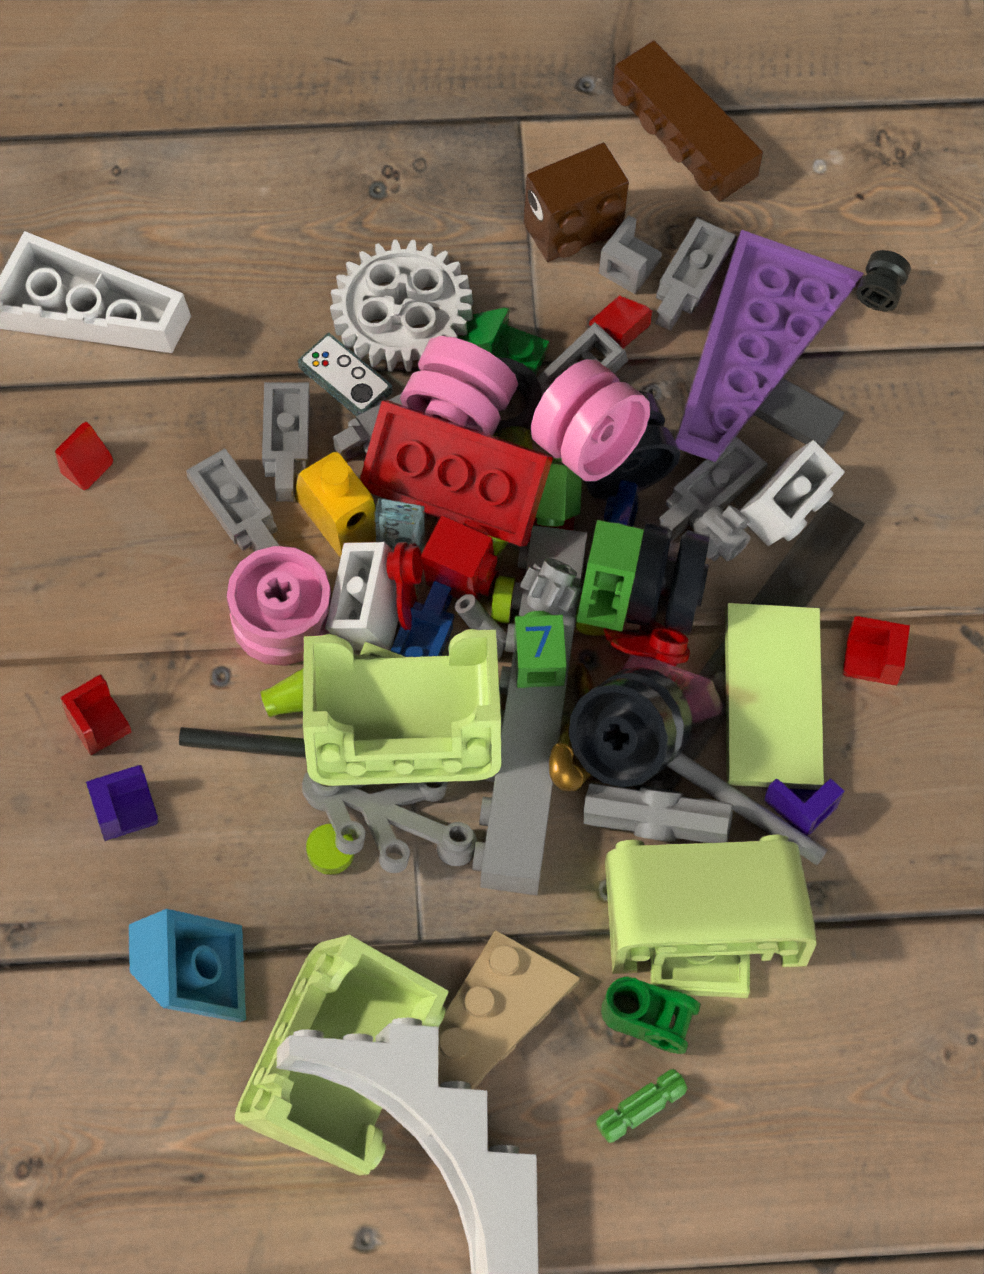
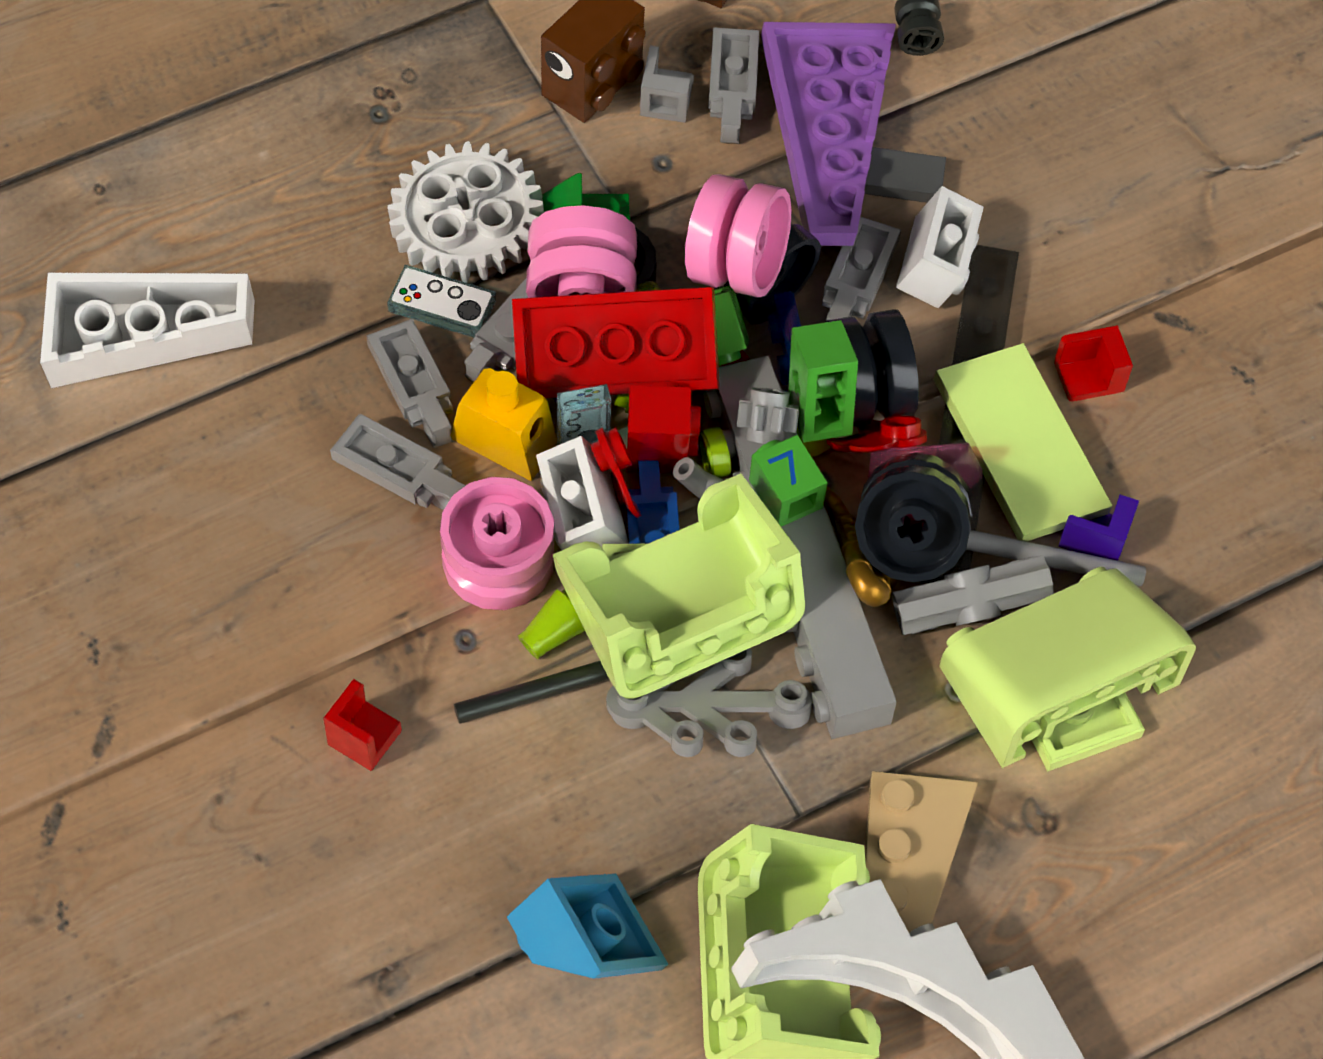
camera: 25 degrees left, 5 degrees down
(83, 457) = (214, 478): red slope -> none
(122, 802) = (432, 802): dark purple panel -> none
(323, 852) = (664, 767): lime tile -> none
(591, 338) = (682, 176): light grey slope -> none
(623, 320) = (688, 150): red slope -> none
(641, 1105) = (1099, 879): bright green axle -> none
(653, 1015) = (1072, 786): green piece -> none
(725, 532) = (897, 296): light grey gear -> none

